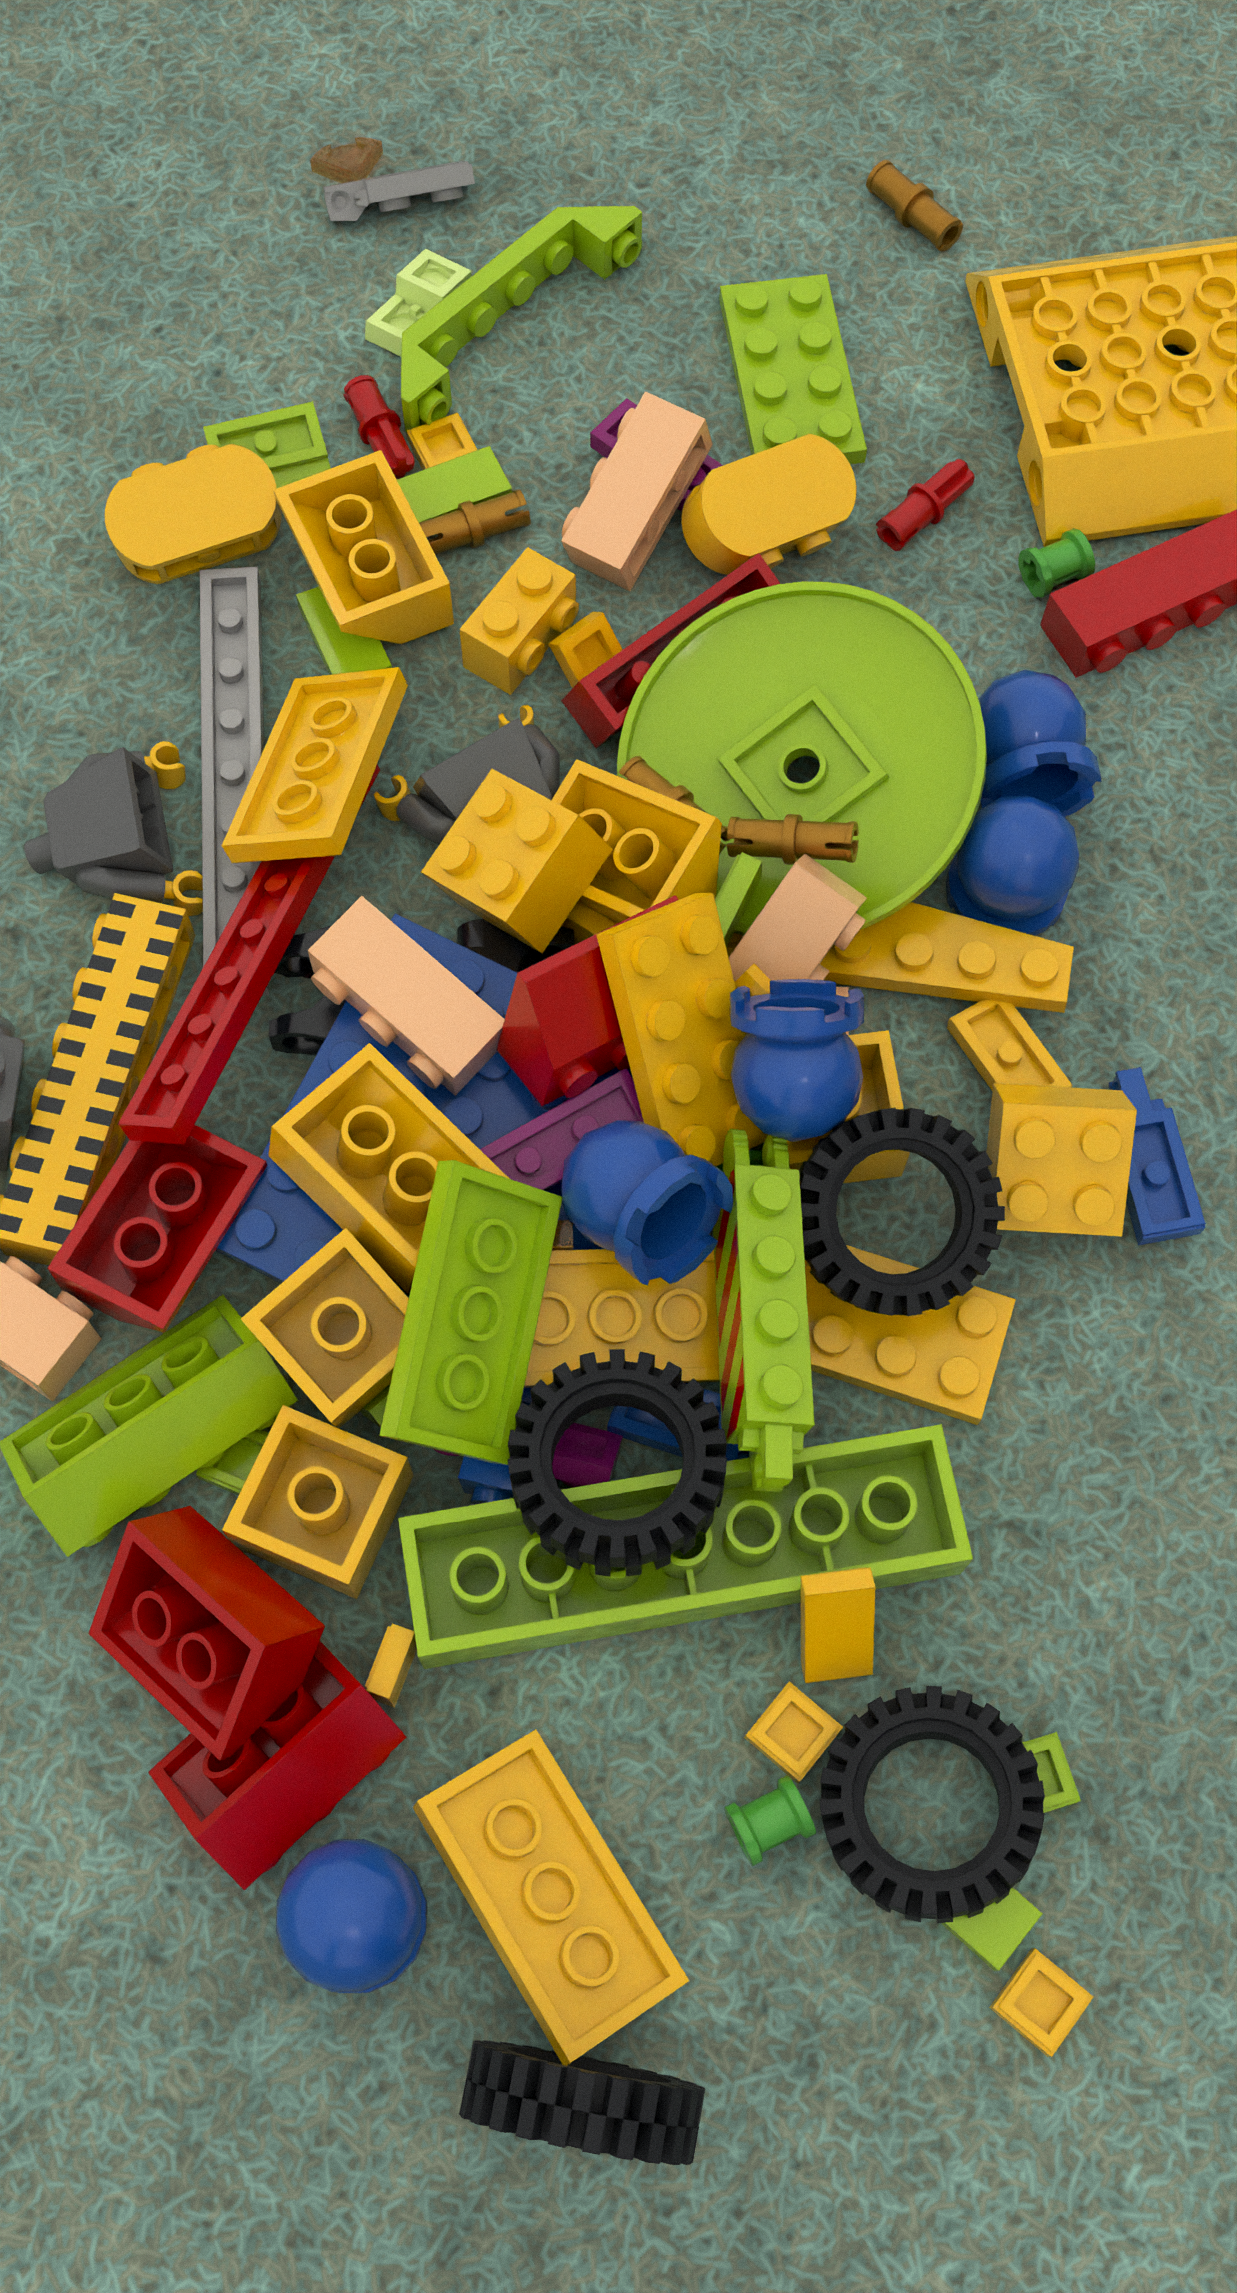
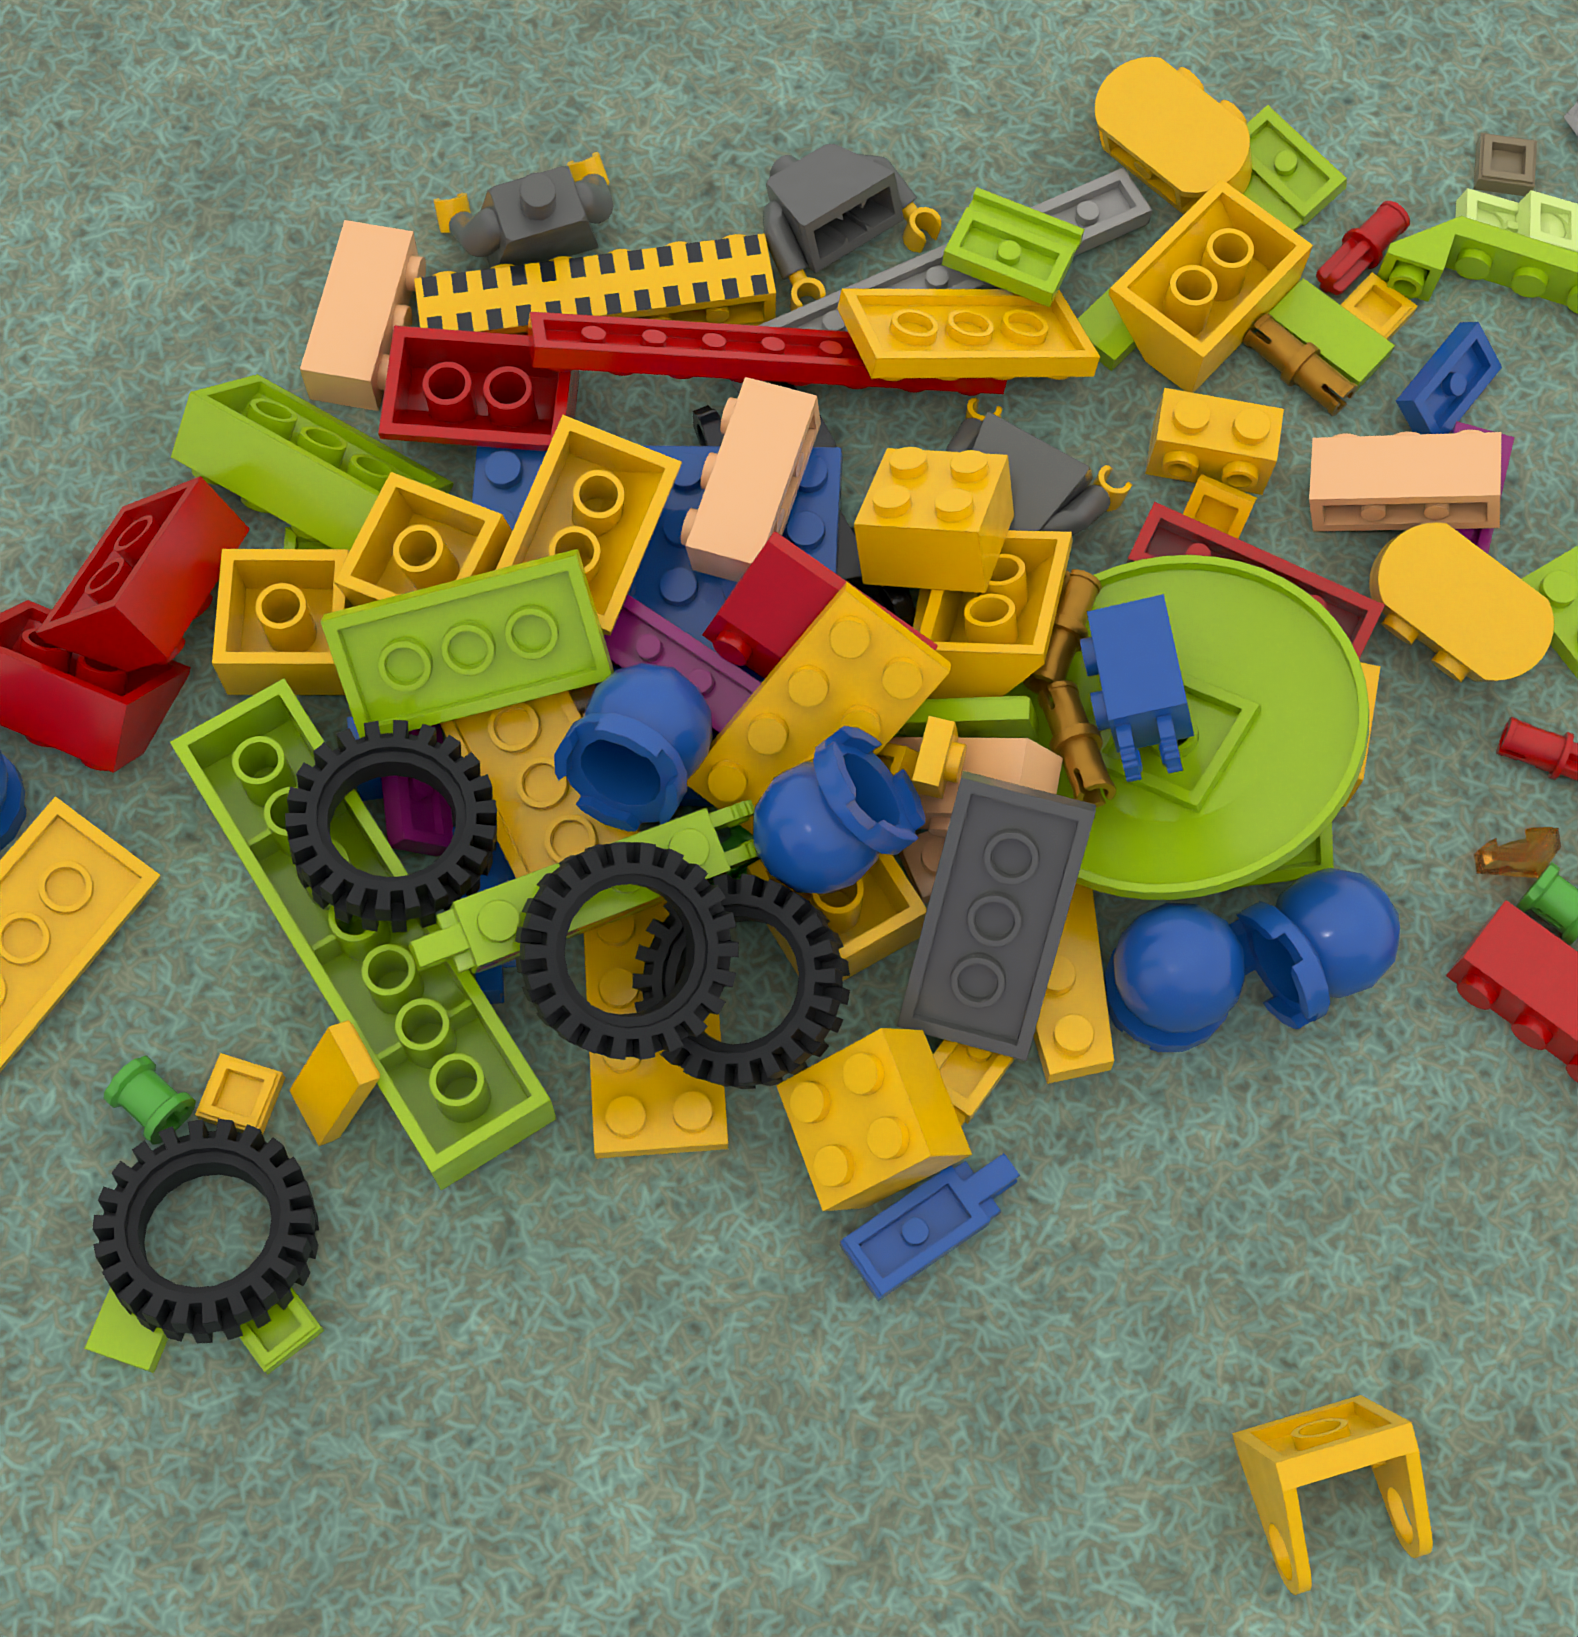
camera: 65 degrees right, 0 degrees up
(244, 689) = (1013, 247): none -> lime plate
(351, 286) = (1505, 164): none -> dark tan tile
(391, 1665) = (155, 734): yellow tile -> none
(549, 422) = (1450, 381): none -> blue plate
(765, 761) = (1139, 681): none -> blue hinge
(772, 947) = (939, 758): none -> yellow plate
(912, 1252) = (707, 955): none -> black tyre
(930, 968) = (996, 915): none -> dark grey plate
(1001, 573) = (1520, 857): none -> clear orange tile
(1041, 2002) = (72, 1400): yellow tile -> none

